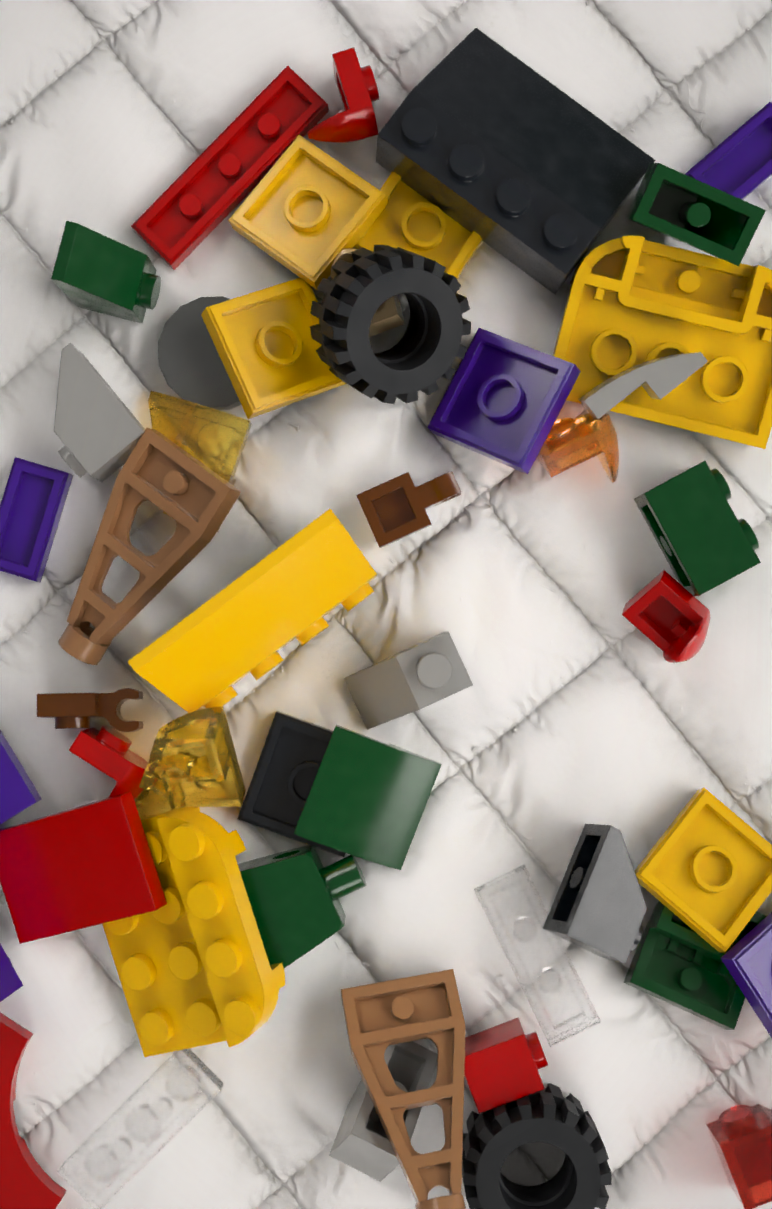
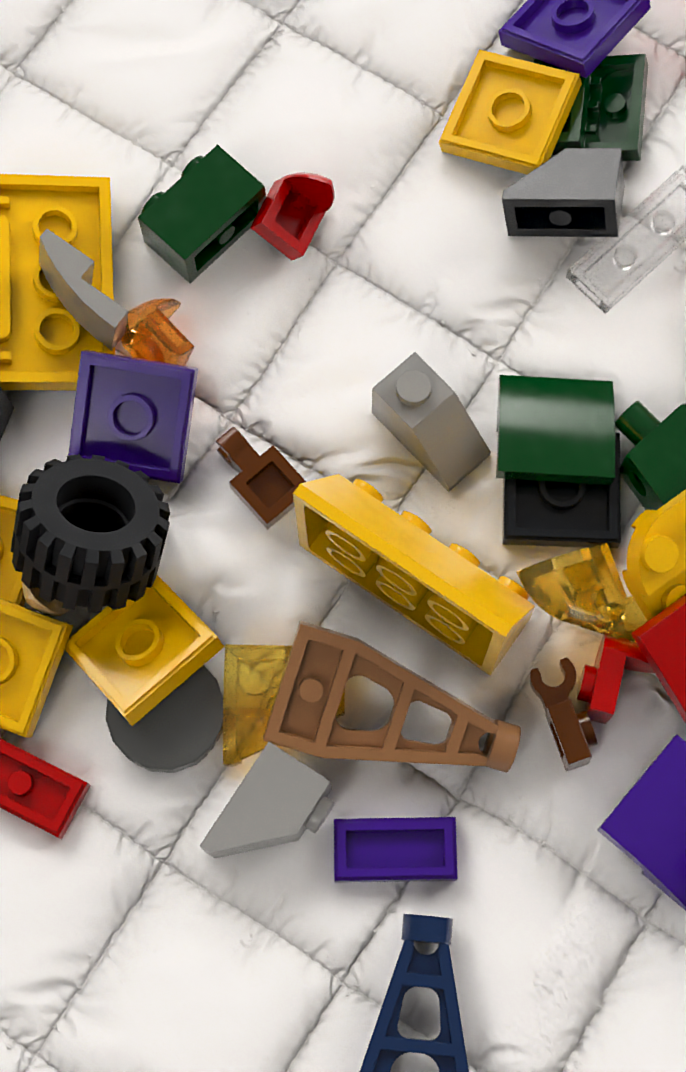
camera: 100 degrees left, 15 degrees down
(105, 274) = (118, 832): dark green slope -> none

